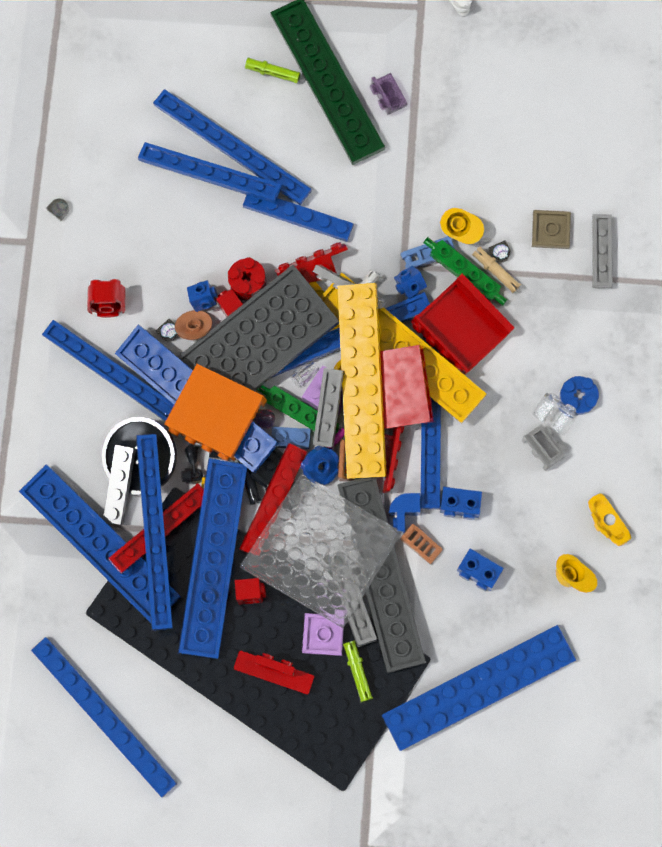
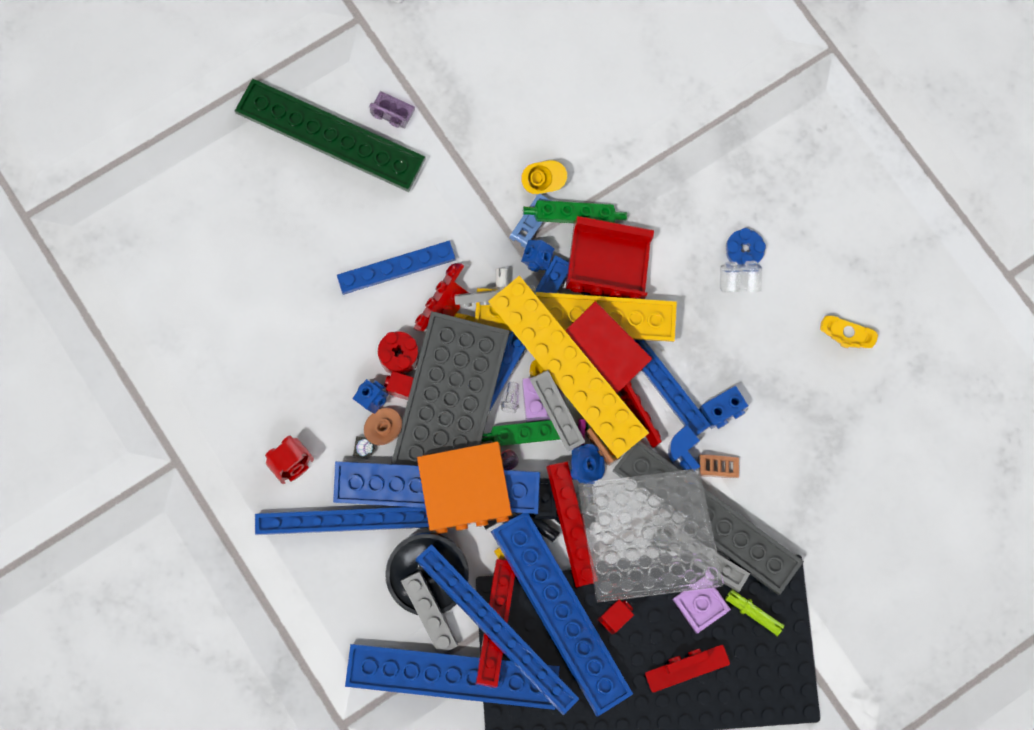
camera: 50 degrees left, 0 degrees up
(58, 208) = (180, 413): clear smoke tile -> none
(192, 453) = (479, 560): black piece -> none
(209, 172) = (291, 285): blue plate -> none
(231, 146) = (292, 249): blue plate -> none
(269, 69) = (269, 161): lime pin -> none
(297, 436) = (541, 458): medium blue plate -> none
(478, 688) = (857, 550): blue plate -> none
(480, 570) = (782, 451): blue brick -> none
(491, 265) = (597, 193): tan pin -> none
(500, 251) = (589, 177): tile -> none
(544, 446) = (752, 310): light grey window -> none
(551, 229) = (614, 128): dark tan tile -> none
(574, 574) = (858, 397): yellow piece -> none
(601, 251) = (670, 117): light grey plate -> none

